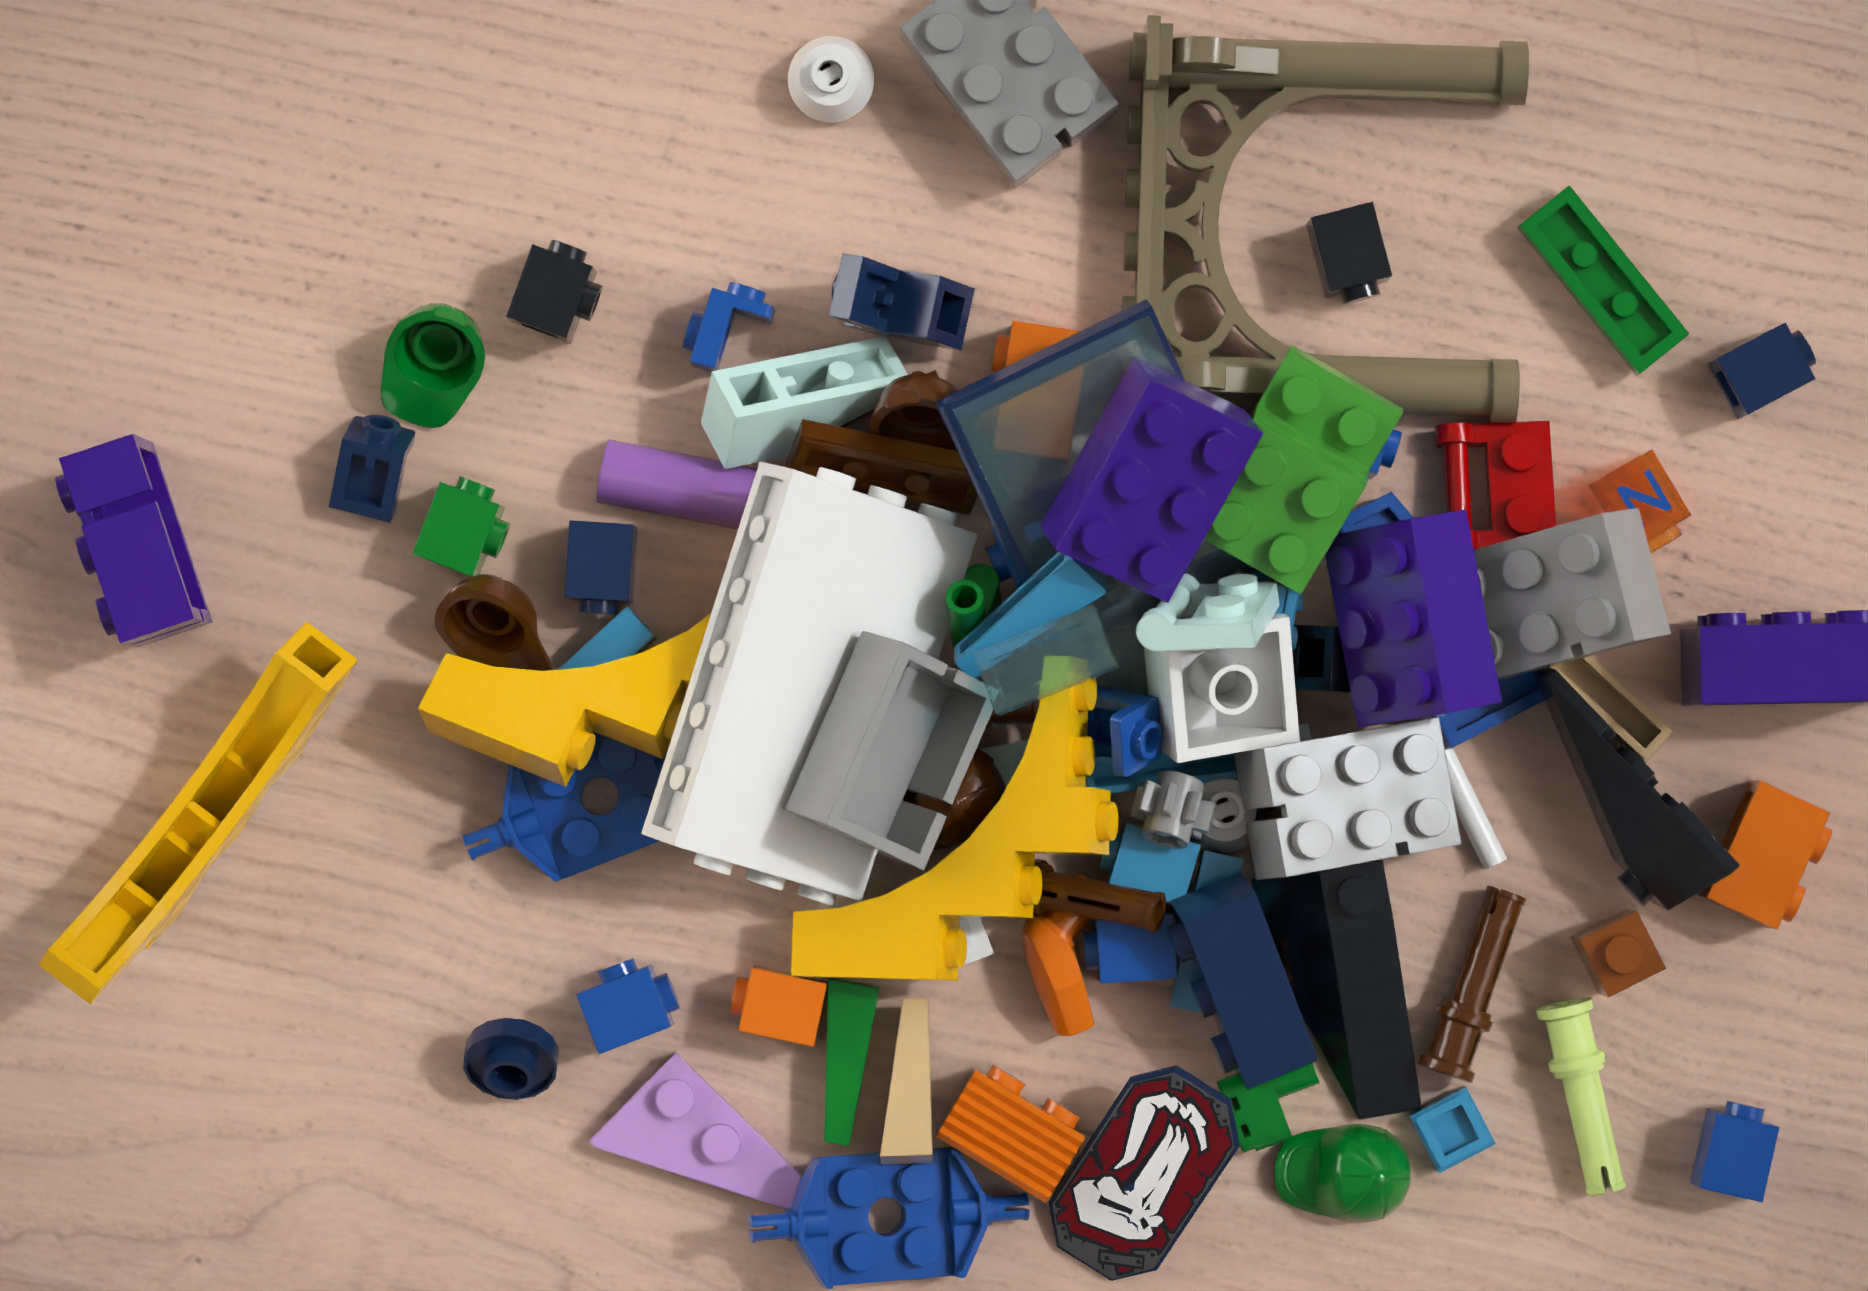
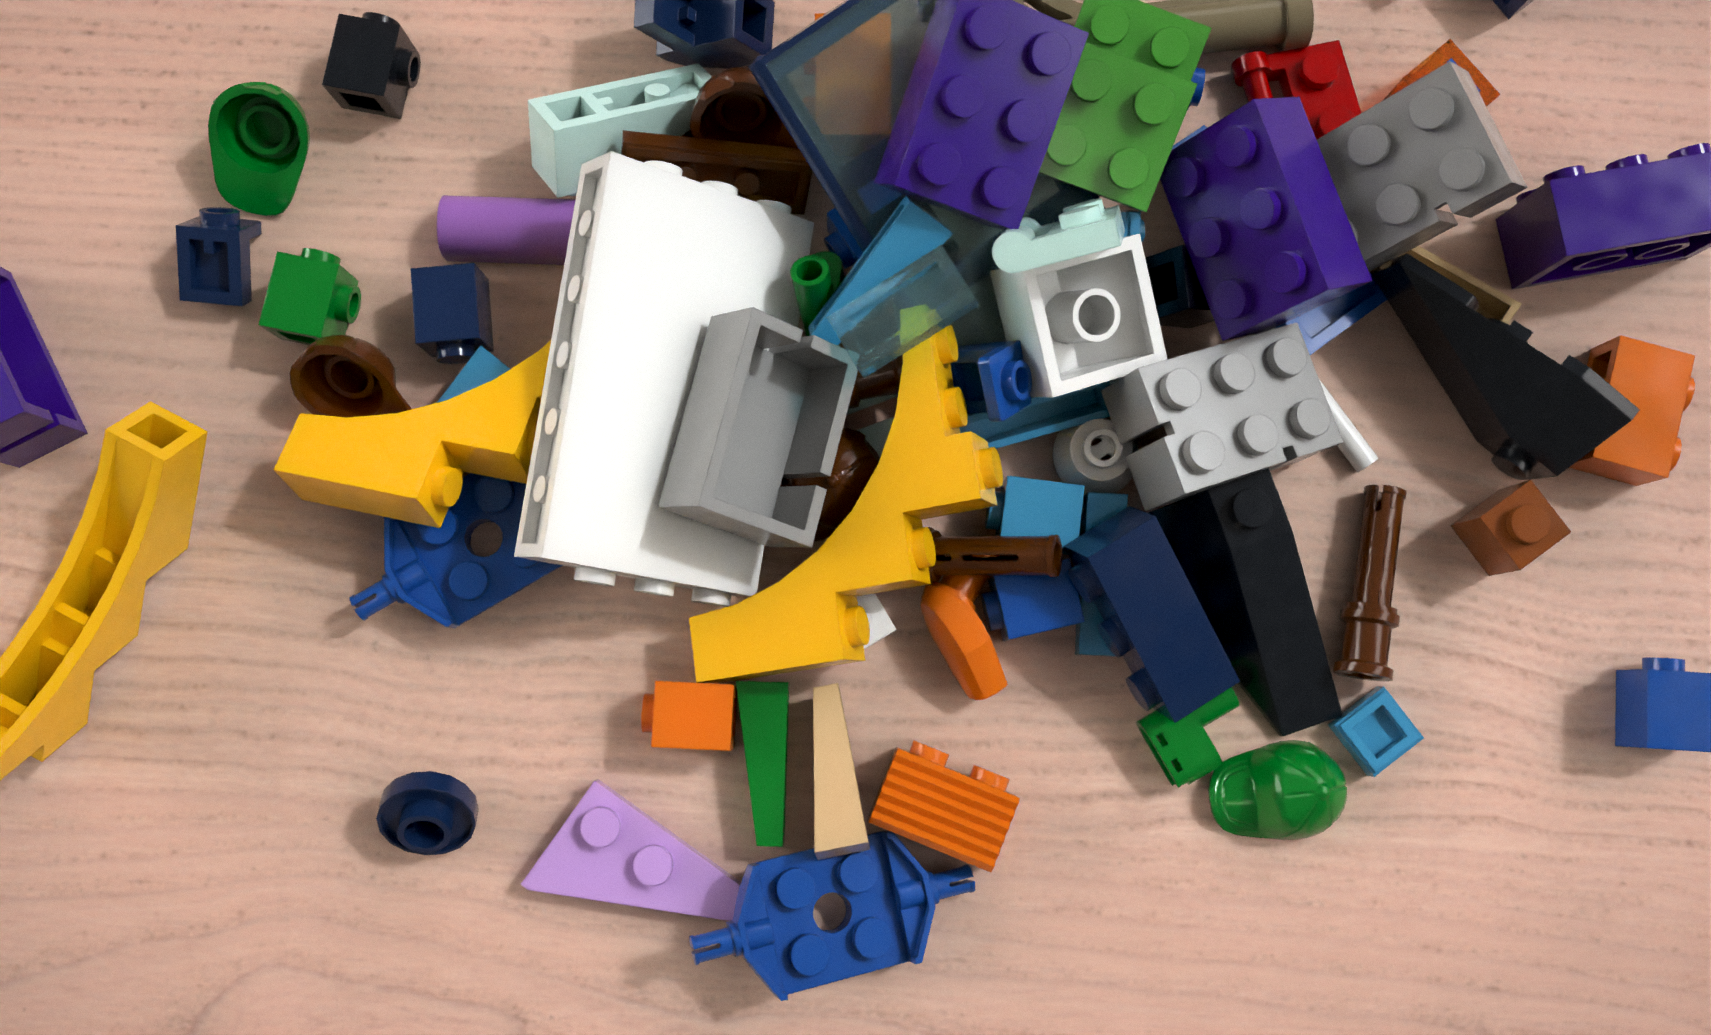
camera: 15 degrees left, 5 degrees down
(627, 1005) = (538, 740): blue brick -> none
(709, 331) = (534, 62): blue bracket -> none
(1144, 1173) = (1084, 823): shield -> none
(1172, 809) = (1052, 452): light grey gear -> none
(1578, 1065) = (1491, 646): yellowish green pin -> none

